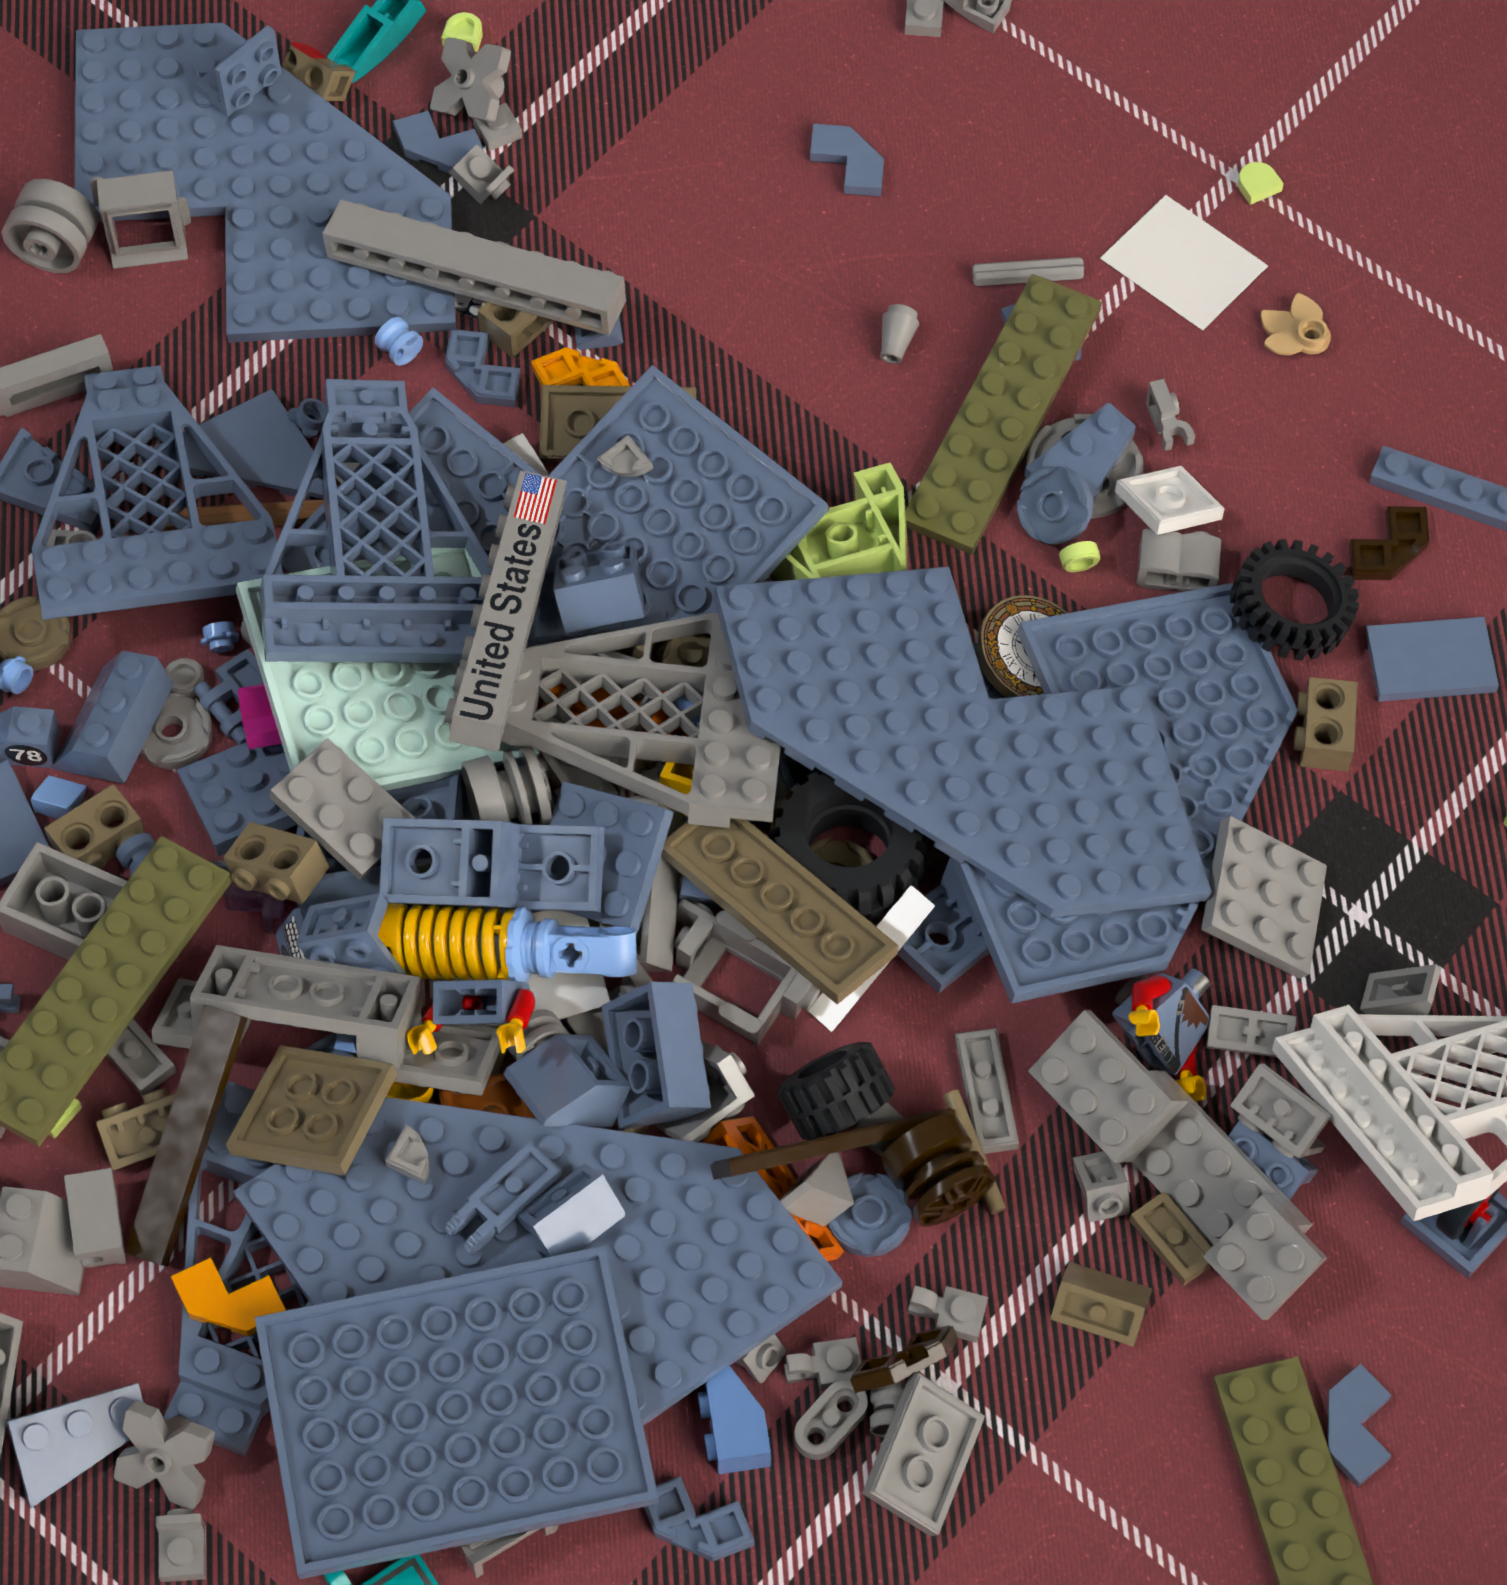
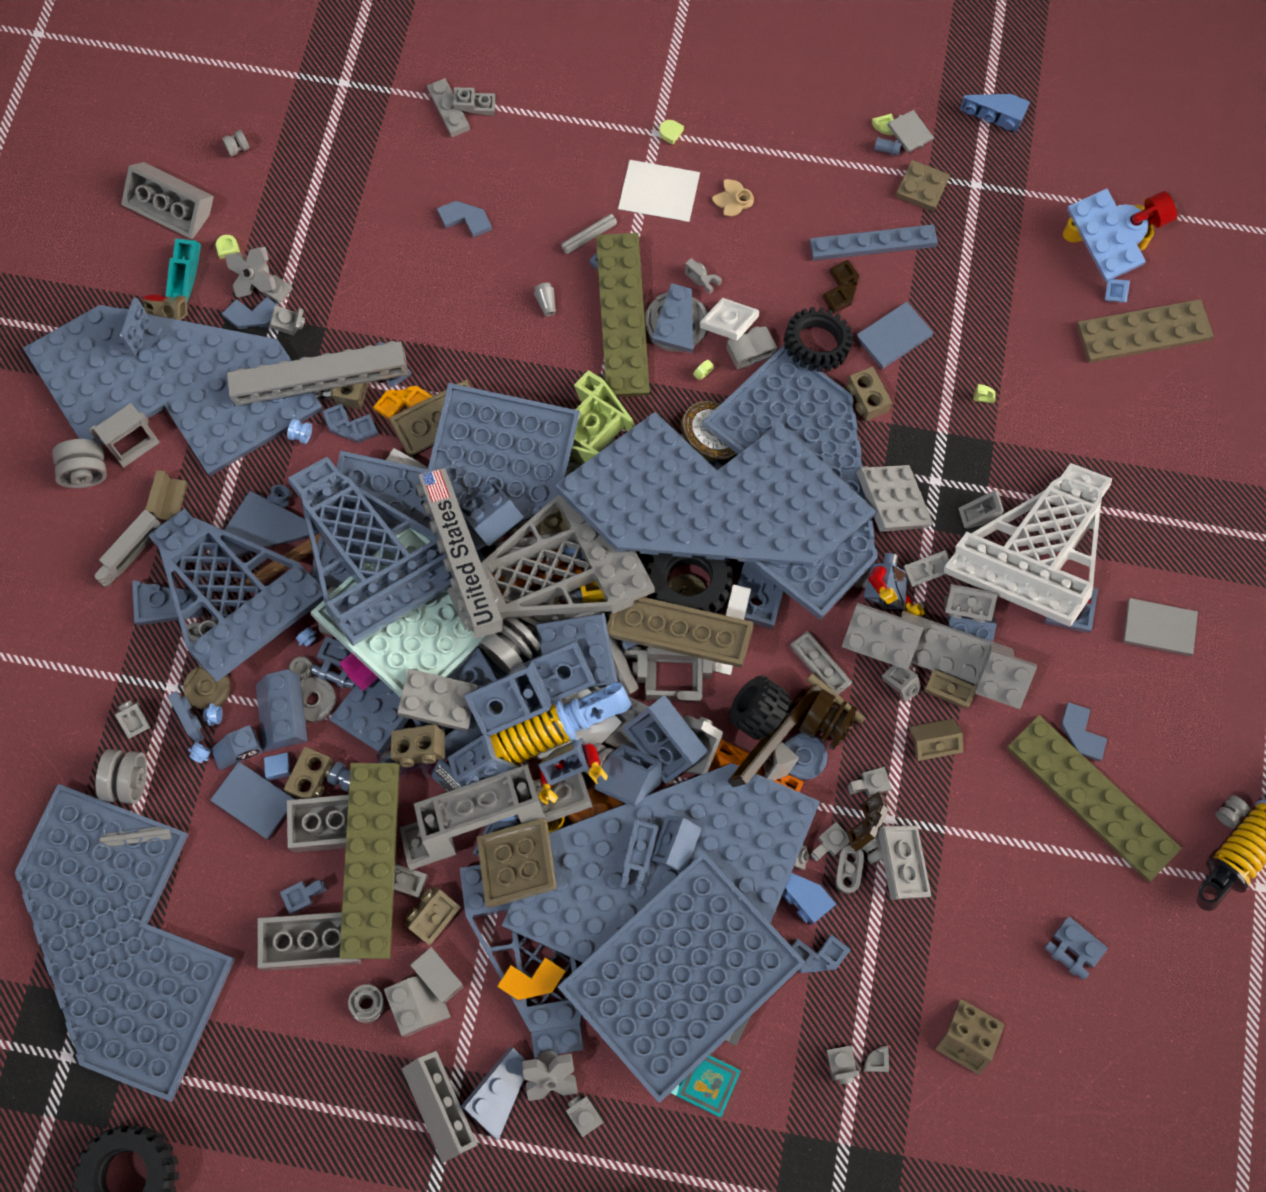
camera: 30 degrees left, 10 degrees up
(145, 335) = (166, 496): none -> dark tan panel
(186, 1135) = (460, 910): dark brown tile -> none
(410, 1156) = (579, 858): light grey tile -> none
(625, 459) = (464, 439): light grey tile -> none
(1055, 505) = (677, 350): sand blue tile -> none

